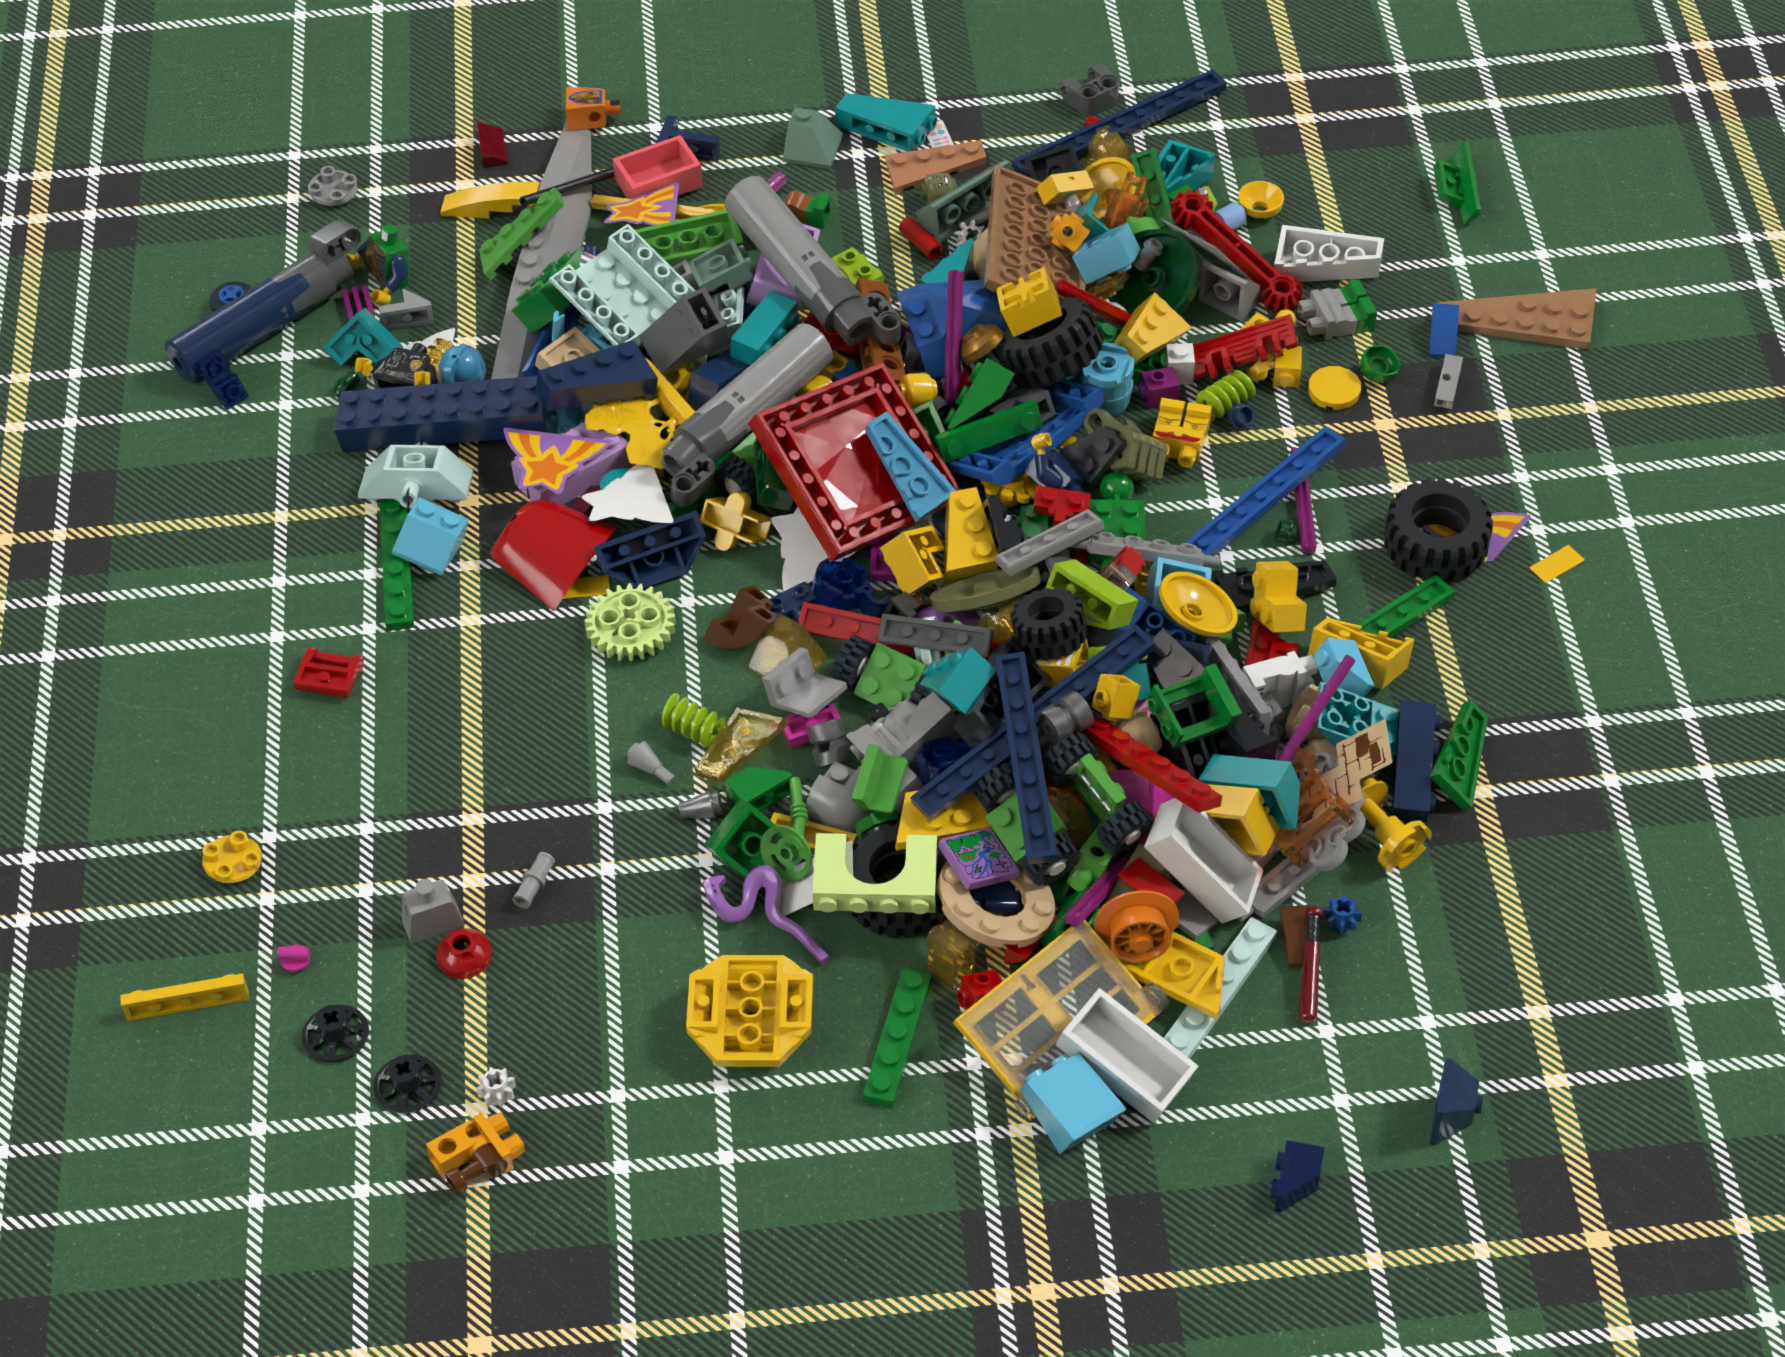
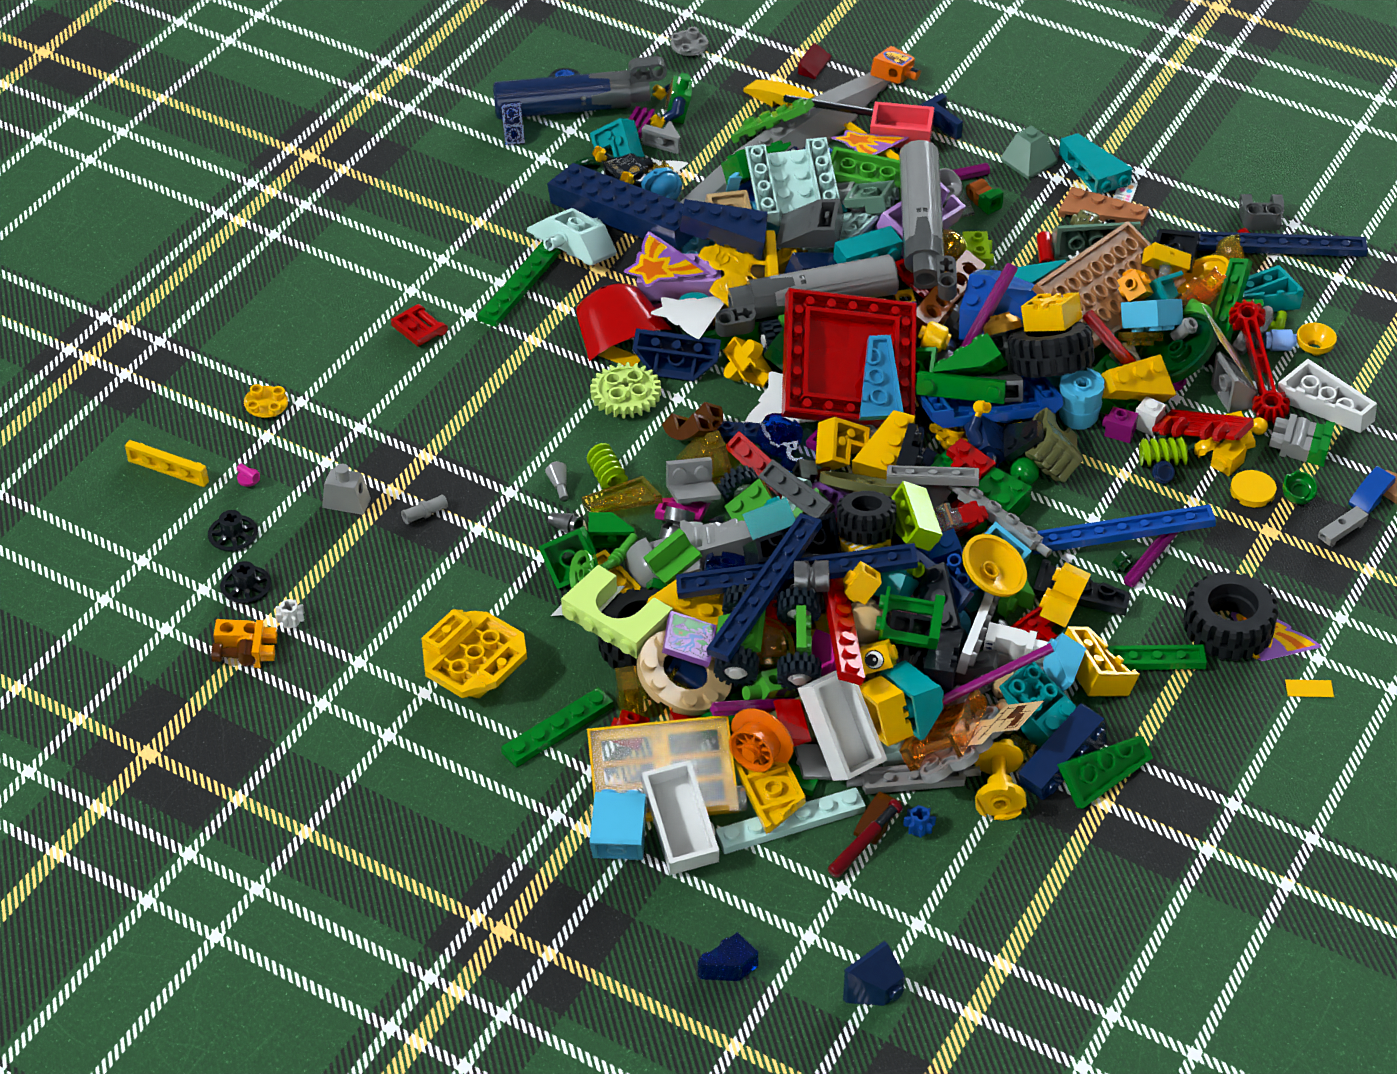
camera: 35 degrees right, 5 degrees down
(430, 536) = (549, 275): medium azure slope -> none
(467, 962) = (346, 534): red piece -> none
(760, 877) = (553, 582): medium lavender animal -> none
(1187, 441) = (1109, 460): yellow hips -> none
(1193, 760) = (878, 656): none -> yellow brick

